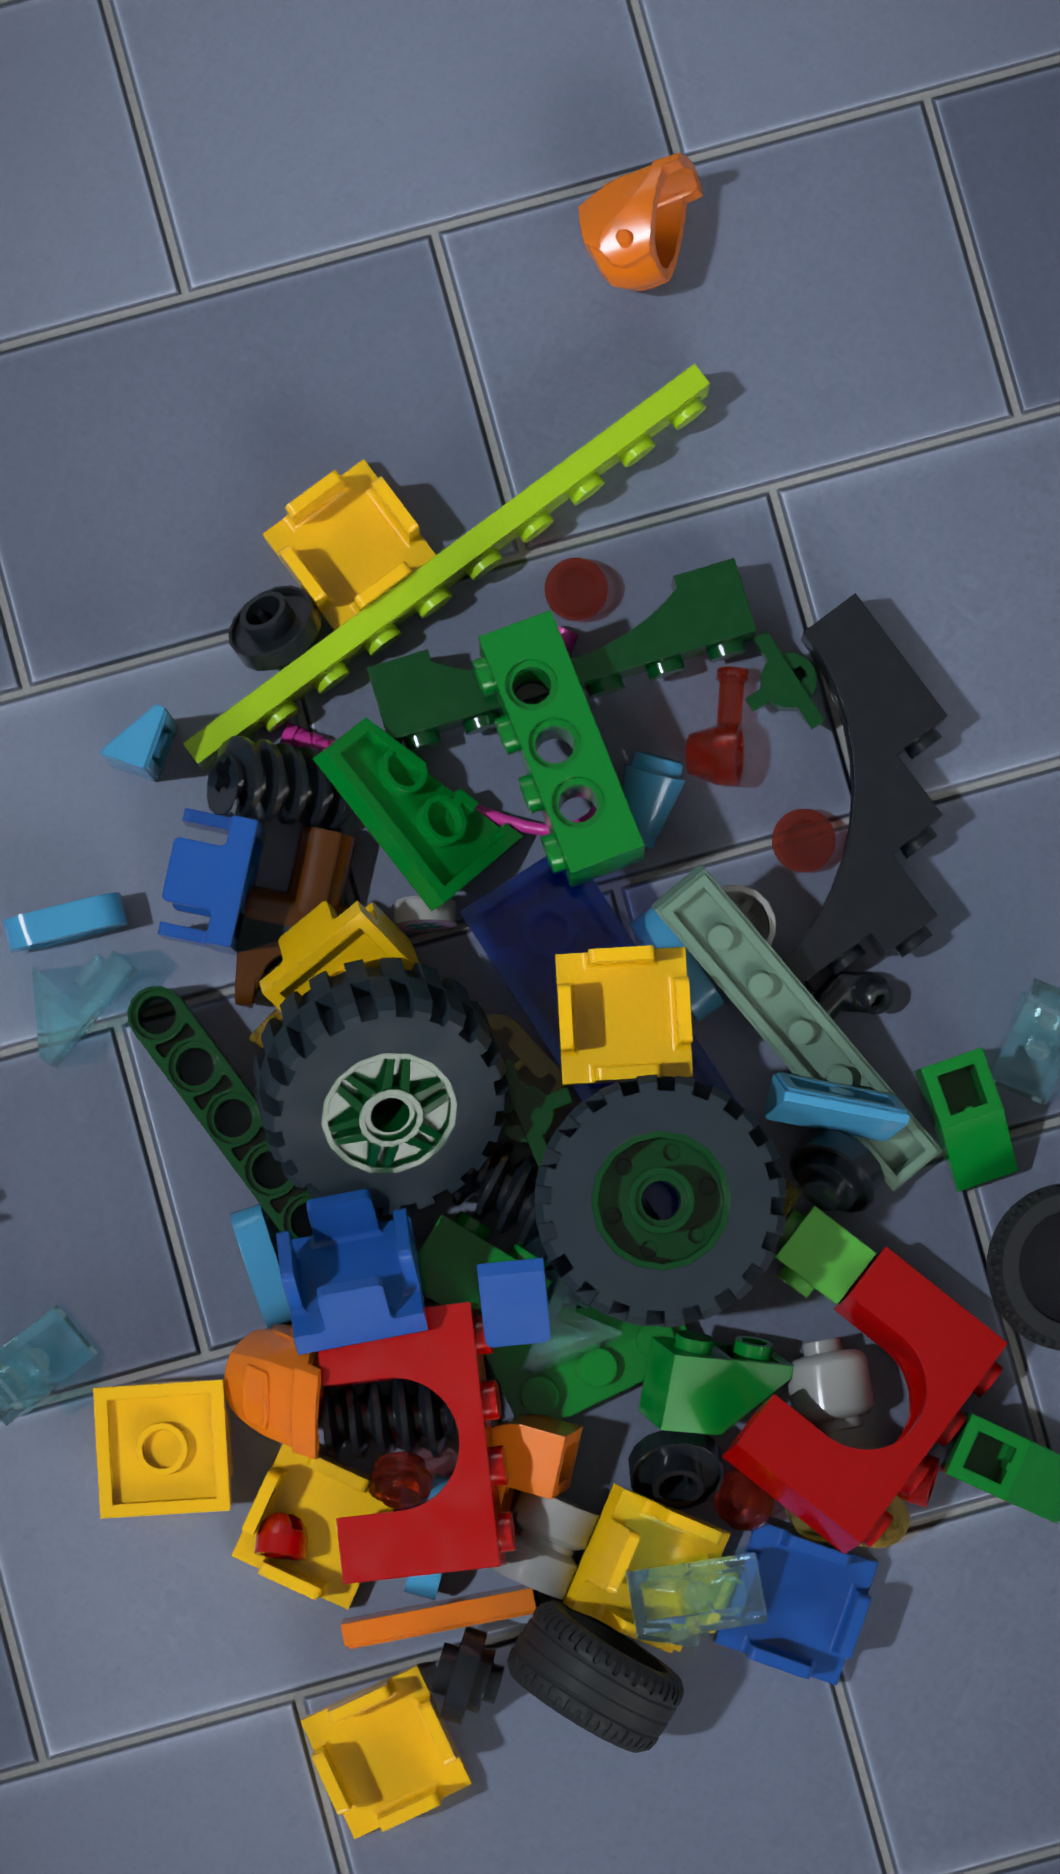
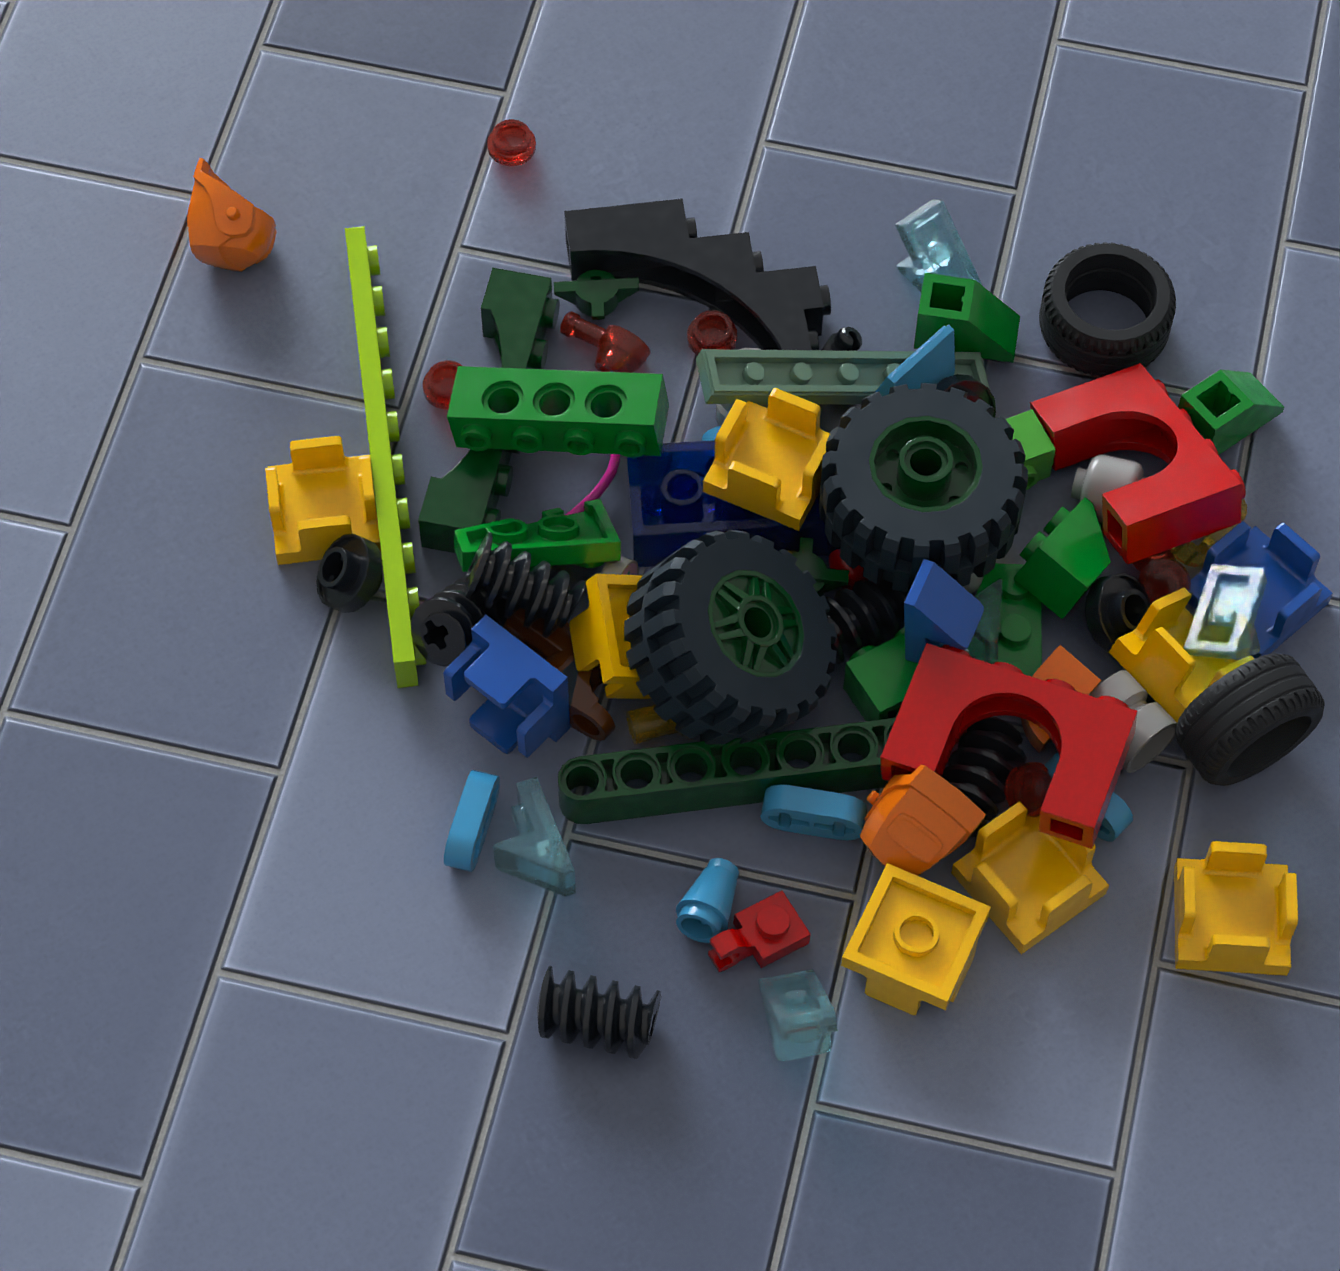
camera: 65 degrees left, 25 degrees down
(108, 1212) = (708, 902): none -> dark azure cone
(111, 1286) = (762, 930): none -> red plate
(143, 745) = (382, 689): dark azure slope -> none
(282, 1537) = (1032, 891): red hinge -> none
(321, 836) = (522, 587): none -> black piece
(352, 1275) = (866, 715): blue panel -> none
(438, 1616) = (1146, 822): orange tile -> none
(466, 1675) = (1200, 817): black plate -> none
(940, 469) = (511, 143): none -> clear red plate

